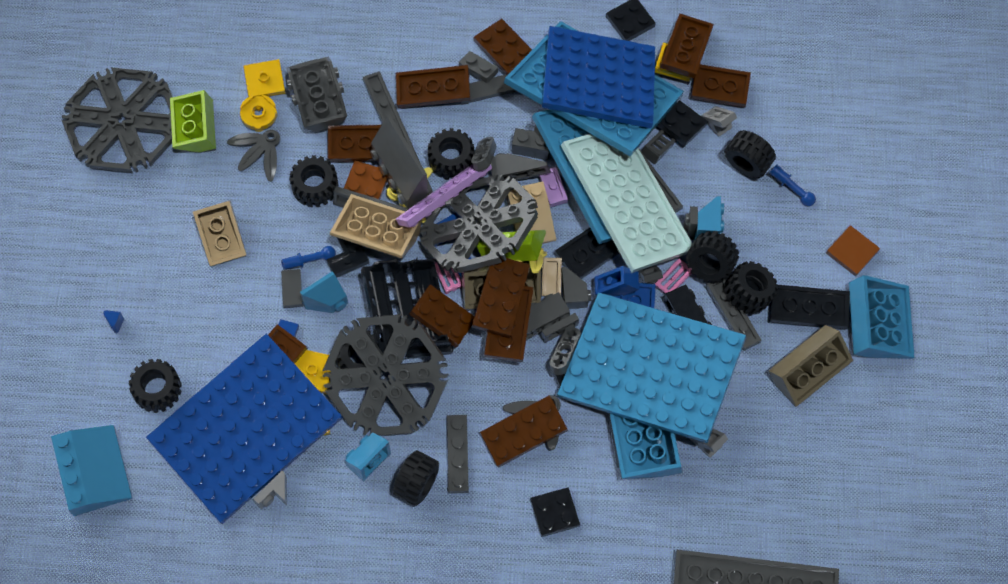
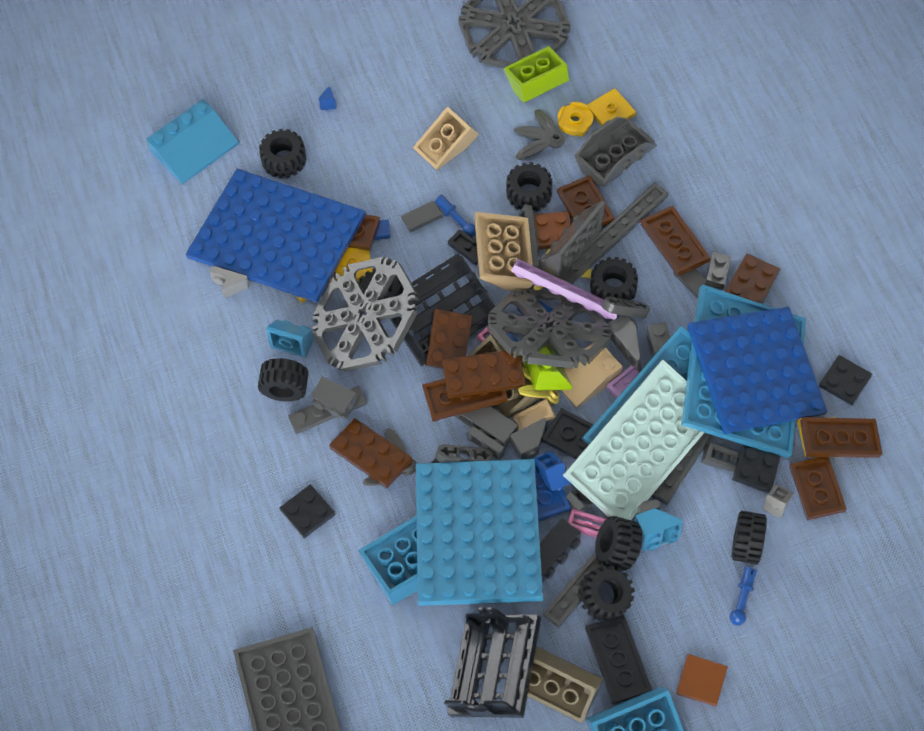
camera: 70 degrees right, 5 degrees down
(325, 295) = (424, 240): dark azure slope -> none
(456, 440) = (334, 398): none -> dark grey brick
(715, 442) = (433, 617): light grey slope -> none
(770, 427) = (470, 665): none -> black piece

